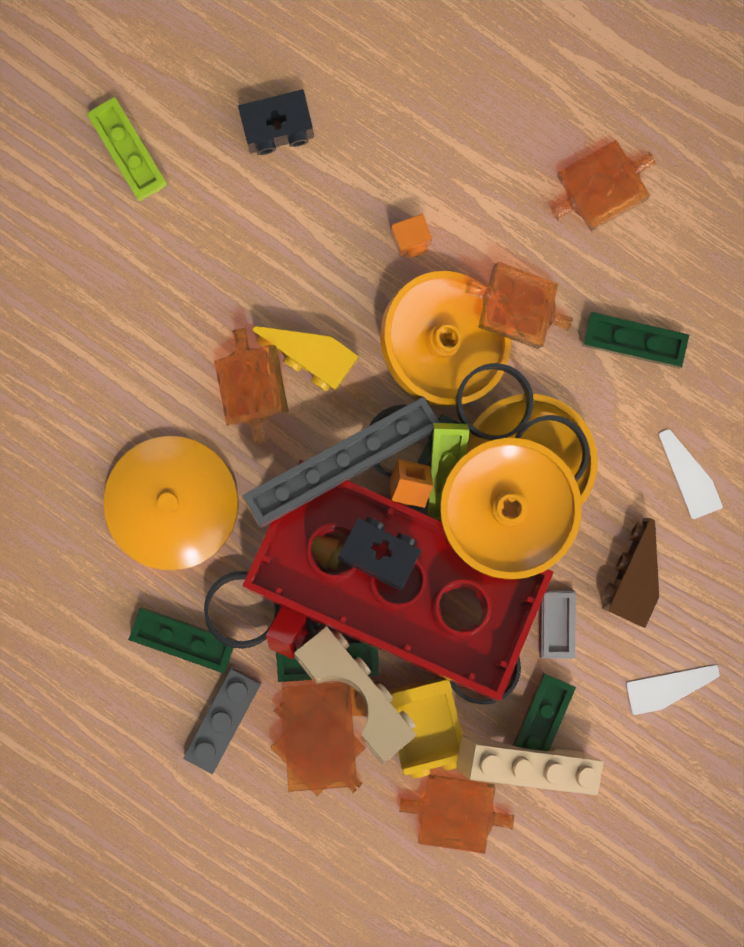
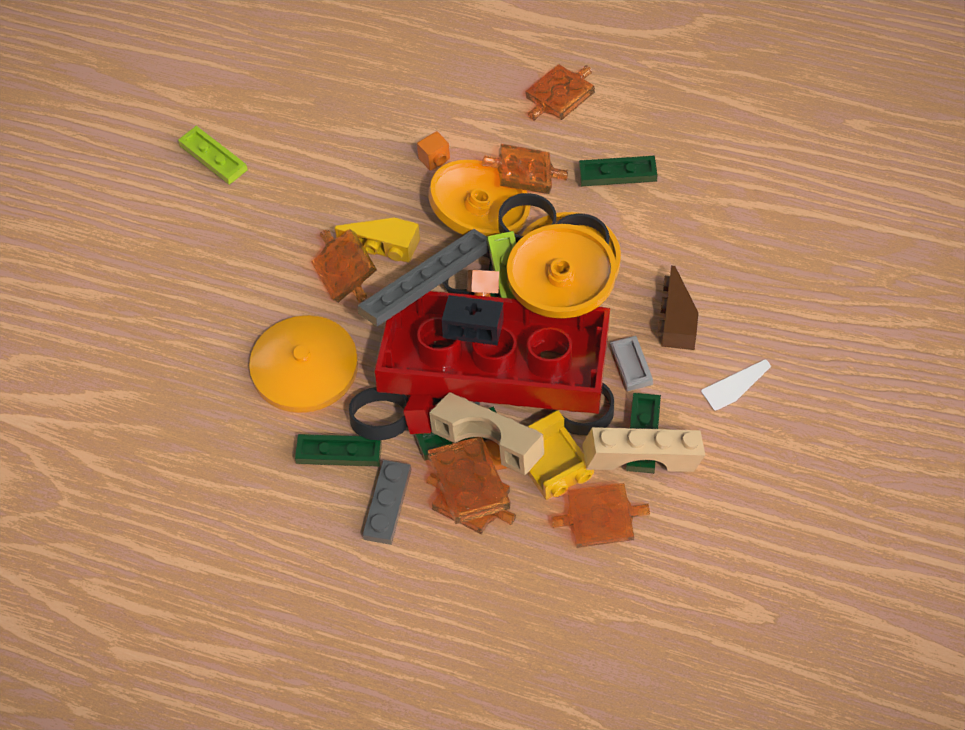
camera: 10 degrees left, 30 degrees down
(258, 121) = (316, 112): black brick -> none
(693, 481) = (700, 250): white sticker -> none

